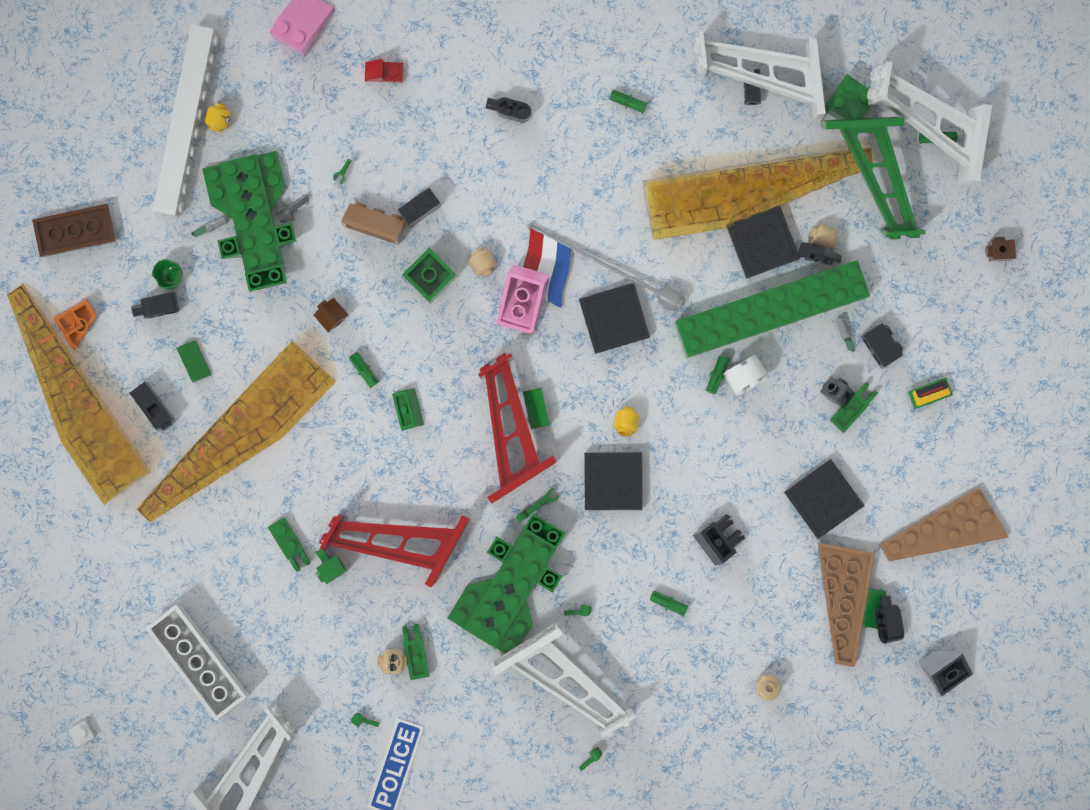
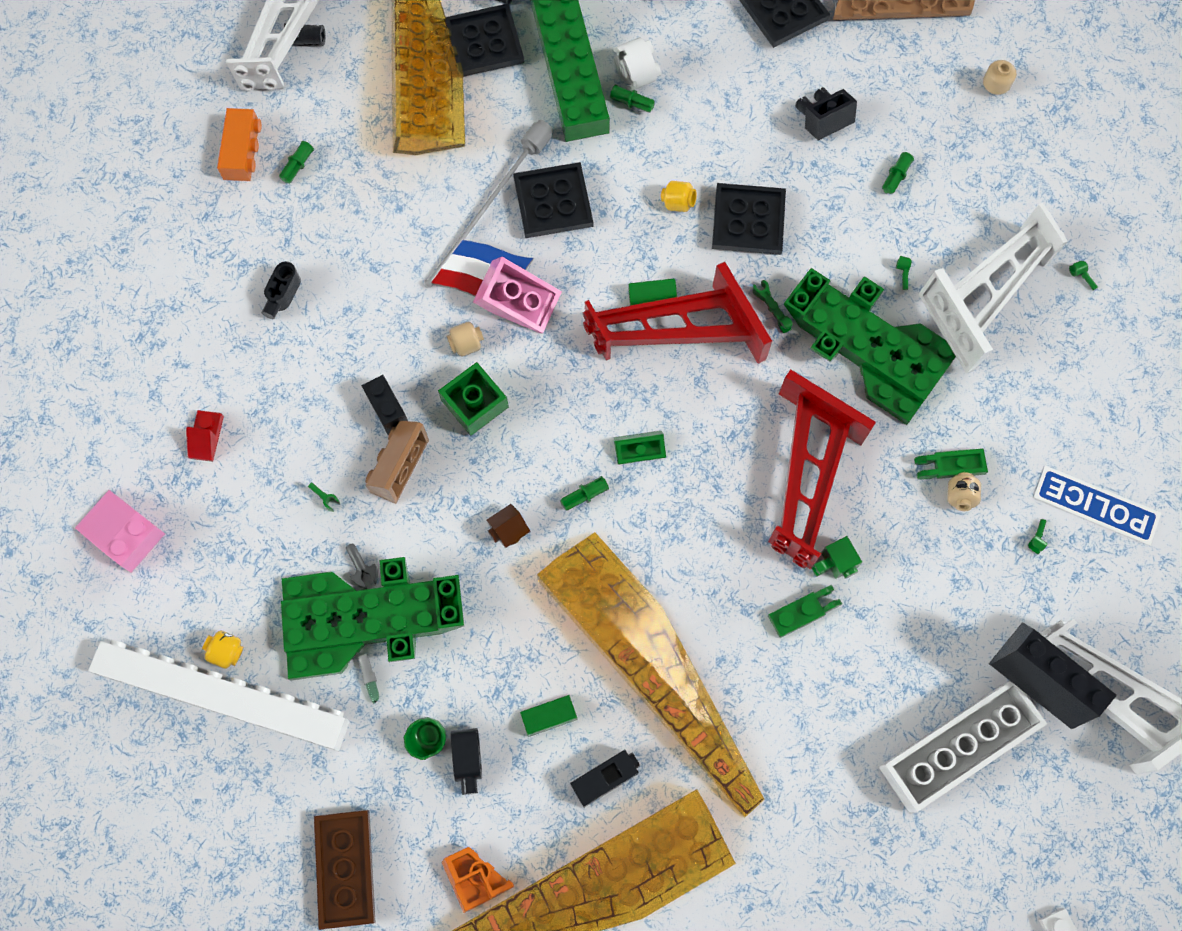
camera: 85 degrees left, 15 degrees down
(246, 722) = (1051, 678): none -> black slope
(638, 52) = (239, 144): none -> orange brick

